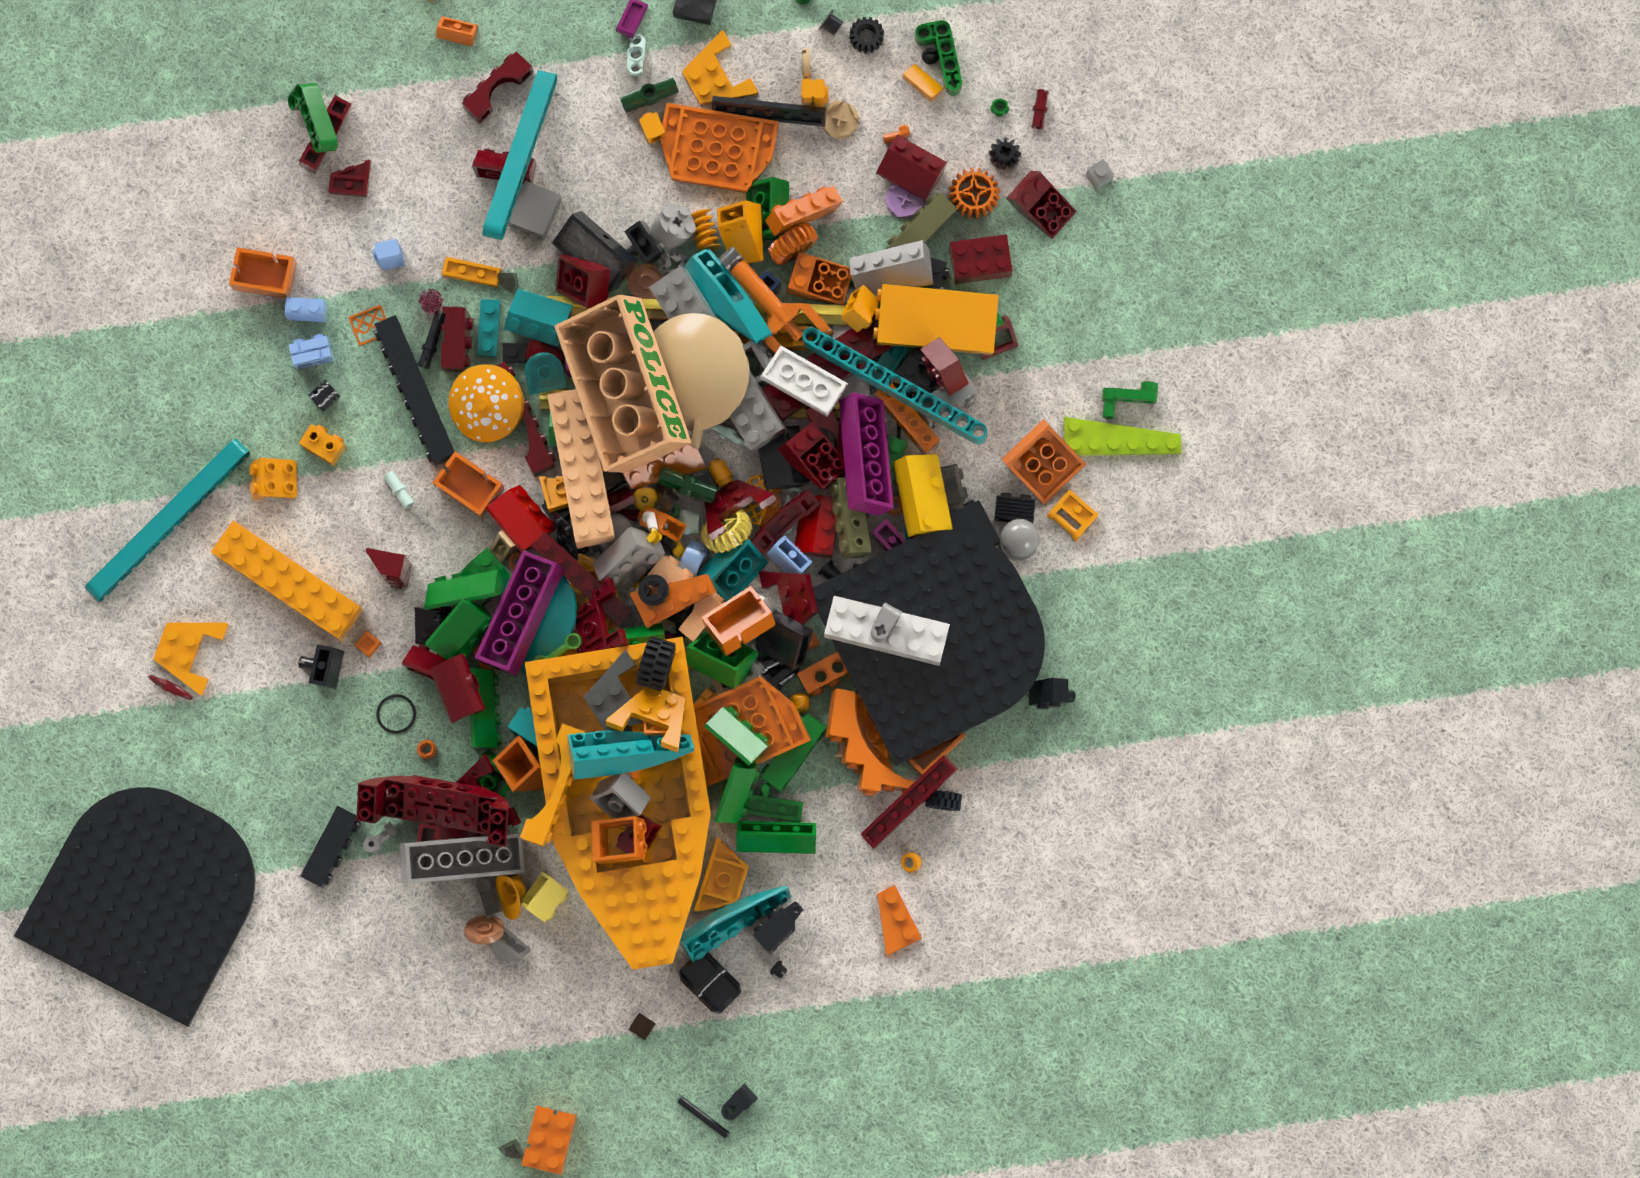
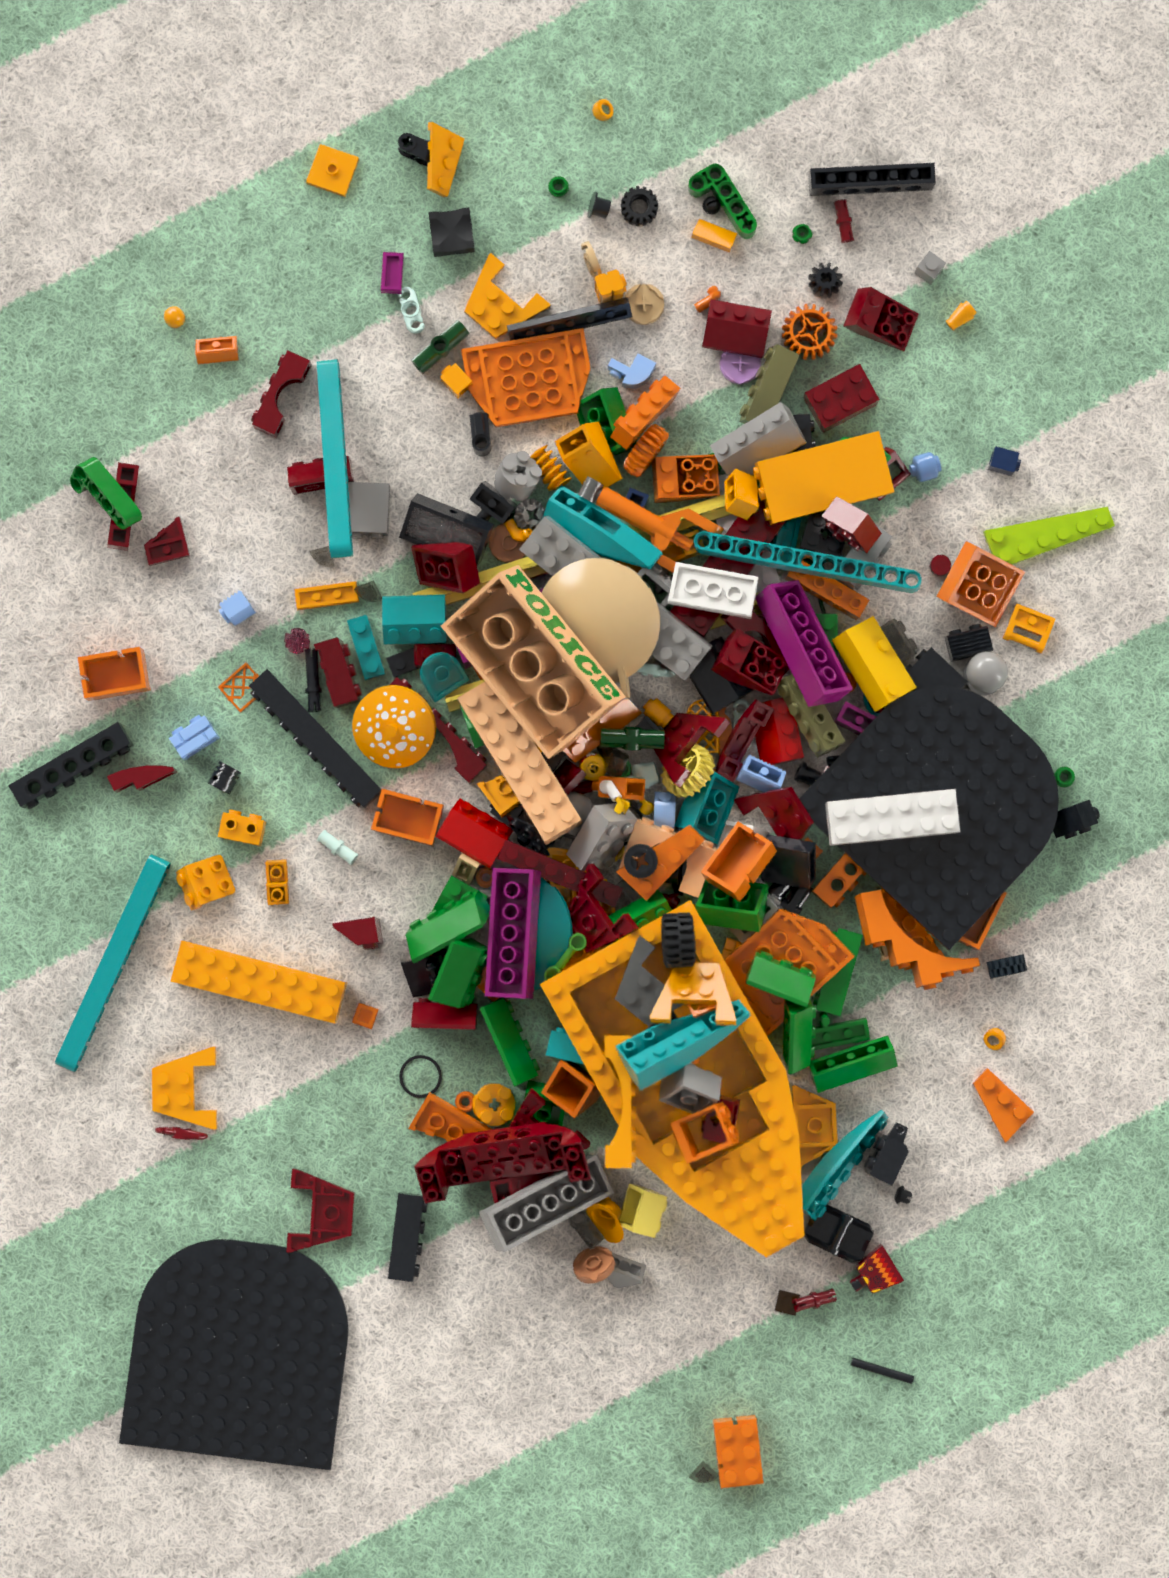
camera: 20 degrees left, 5 degrees up
(147, 342) = (22, 787): none -> black brick
(251, 369) = (139, 776): none -> dark red slope
(273, 801) = (330, 1212): none -> dark red wing
(306, 309) = (172, 695): light blue brick -> none
(324, 666) = (331, 1056): black brick -> none
(335, 501) = (277, 882): none -> light orange slope
(373, 843) = (448, 1216): light grey leg -> none
(401, 757) = (444, 1120): none -> orange wing
(441, 767) = (503, 1112): none -> light orange plate
(458, 688) = (479, 1032): dark red panel -> none
(480, 240) = (322, 556): none -> clear smoke tile
(653, 272) = (517, 533): none -> light orange arm
(656, 180) = (480, 432): none -> black piece
(666, 1032) = (814, 1300): none -> dark red pin
(730, 1027) = (876, 1271): none -> torso
(740, 1100) = (913, 1341): black piece -> none
(801, 701) = (825, 916): light orange piece -> none
(808, 177) = (633, 376): none -> light blue brick
(885, 620) = (891, 808): light grey piece -> none
(909, 801) = (974, 981): dark red plate -> none
(1015, 433) = (940, 565): none -> dark red tile
(1032, 343) = (925, 467): none -> medium blue head
(1060, 650) = (1070, 774): none -> green plate
(1076, 81) = (871, 179): none -> black brick
(1103, 363) = (1004, 461): none -> dark blue brick
(1112, 225) = (961, 315): none -> light orange cone
(1146, 394) = (1059, 478): green beam -> none

